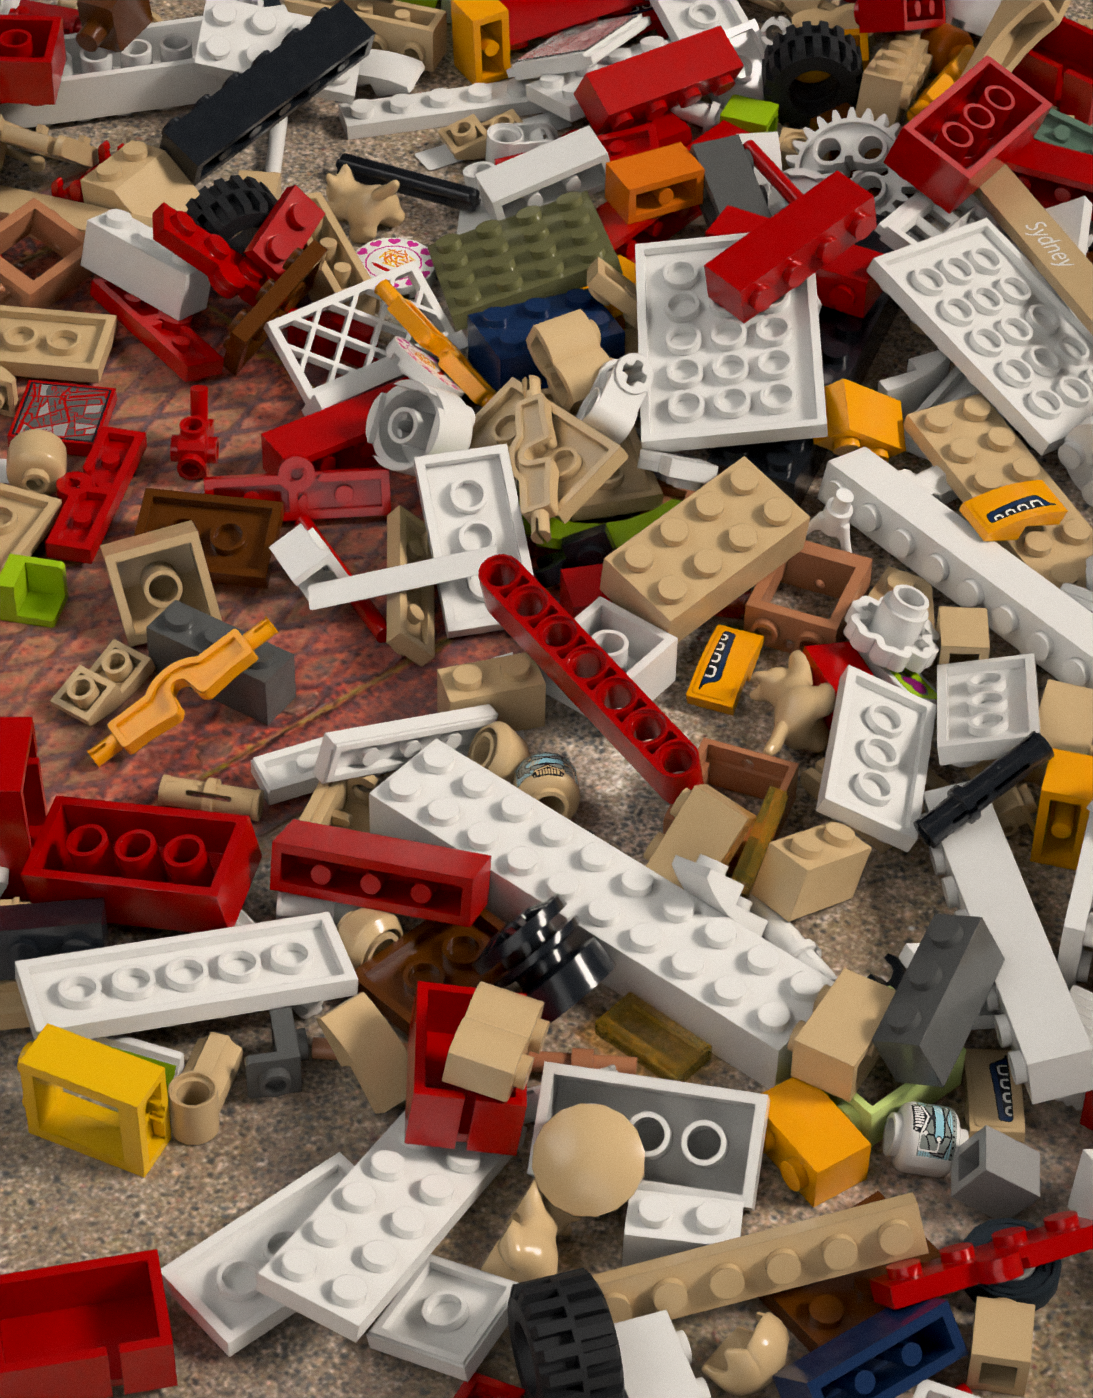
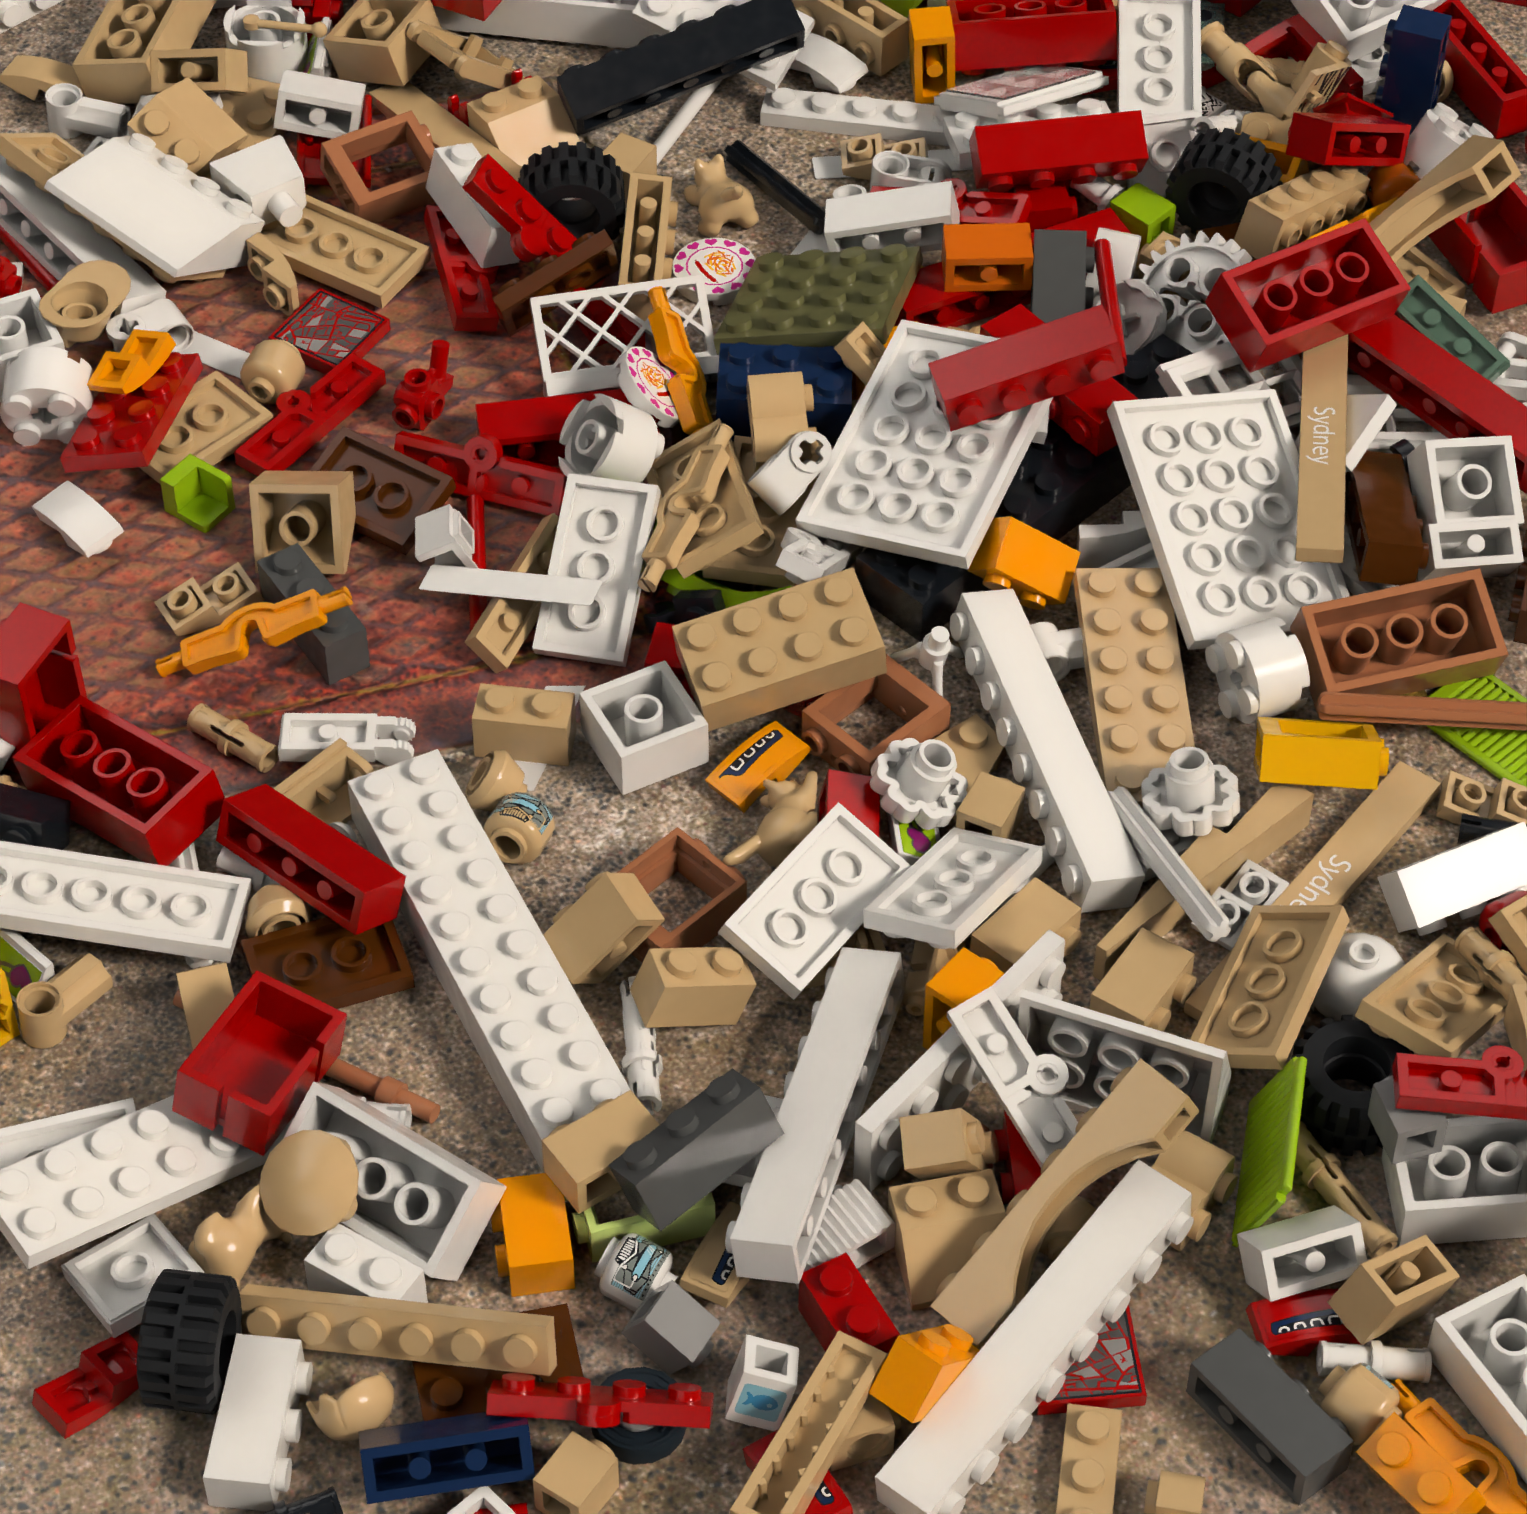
camera: 25 degrees right, 5 degrees up
(280, 1070) = (142, 1002): dark grey bracket -> none
(283, 231) = (604, 207): red plate -> none
(393, 743) = (396, 741): white tile -> none
(495, 1042) = (269, 1049): tan brick -> none
(543, 961) = (390, 991): black wheel -> none
(573, 655) = (593, 736): red beam -> none
(653, 1038) = (469, 1094): clear yellow tile -> none
(709, 884) = (588, 982): white slope -> none
(759, 839) = (659, 932): clear yellow tile -> none
(967, 801) = (864, 969): black pin -> none
(1010, 508) = (1106, 695): light orange slope -> none

